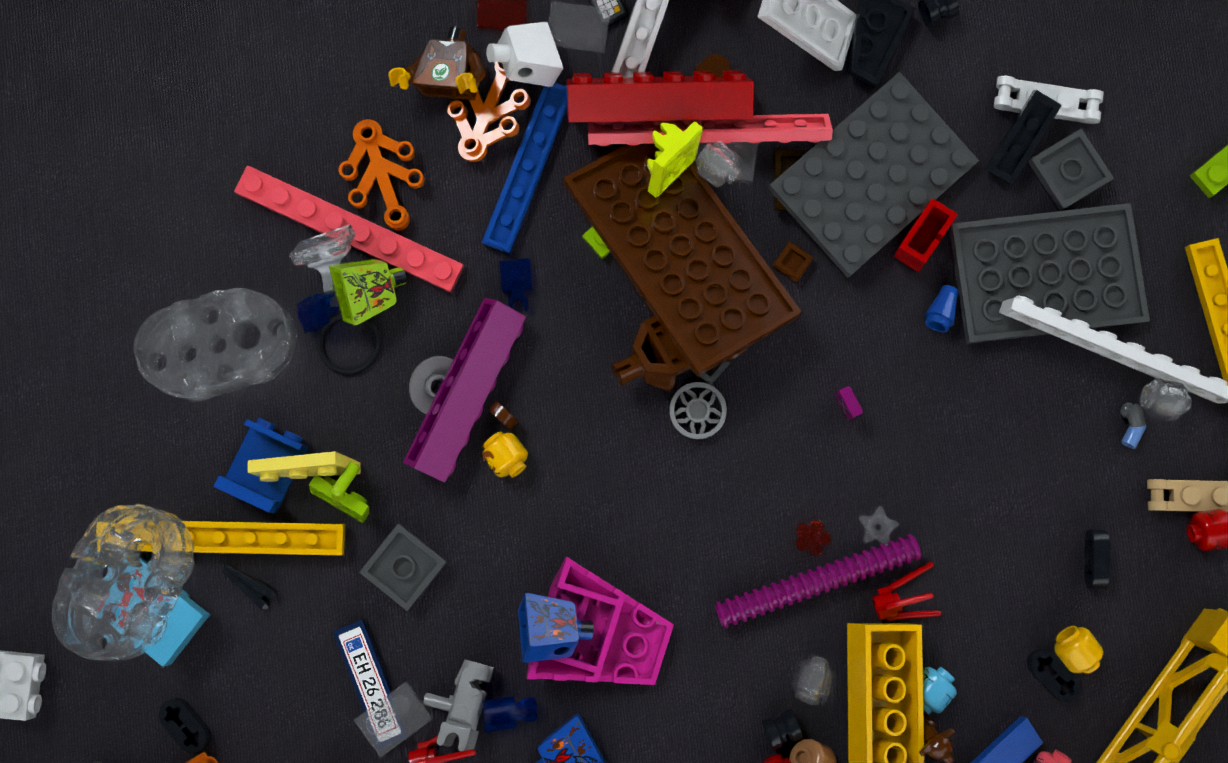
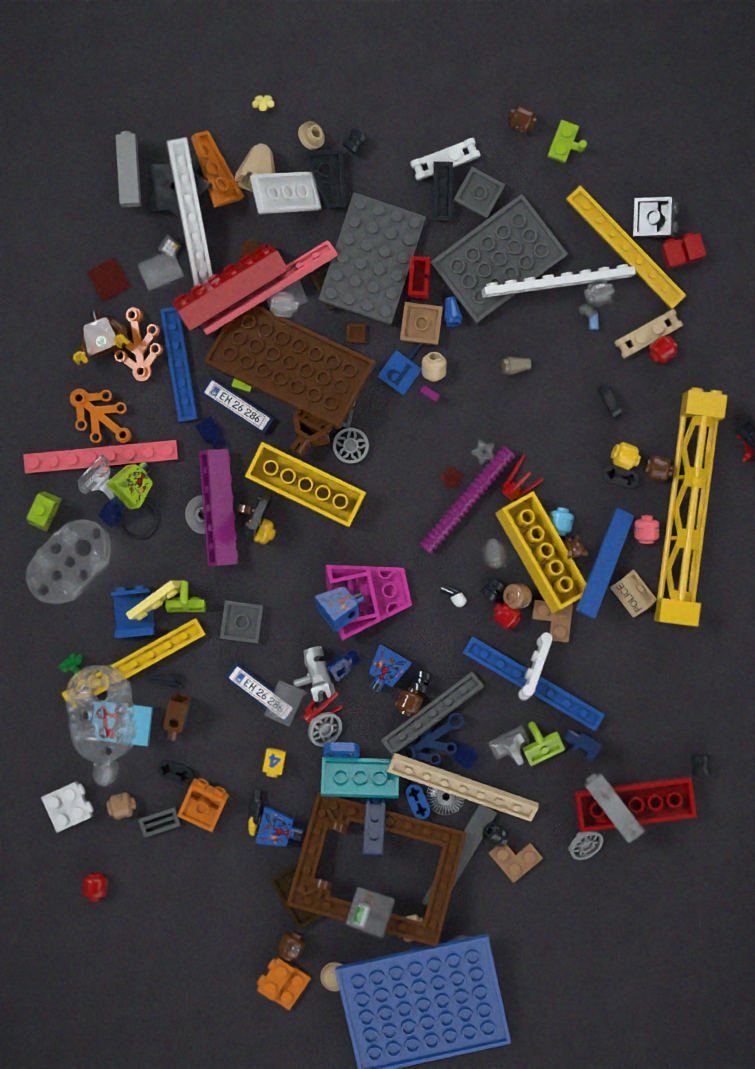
camera: 30 degrees left, 5 degrees up
(79, 729) = (121, 806): none -> medium nougat head
(84, 673) = (105, 772): none -> clear head
(134, 487) = (71, 664): none -> green plant
(226, 254) = (43, 510): none -> lime torso
(233, 645) = (177, 709): none -> reddish brown torso
(512, 432) = (258, 515): none -> black plate
(527, 54) = (142, 303): white torso -> none
(574, 266) = (237, 405): none -> tile
(604, 427) = (305, 484): none -> yellow brick
(676, 154) = (257, 313): neon yellow piece -> none
(724, 706) = (456, 595): none -> arm
(825, 348) = (400, 371): none -> blue piece
(876, 368) = (434, 366): none -> tan head
(891, 300) = (421, 323): none -> medium nougat plate
(988, 430) = (513, 365): none -> dark tan cone
(1116, 695) = (658, 468): none -> reddish brown head
(1185, 105) = (522, 119): none -> reddish brown head

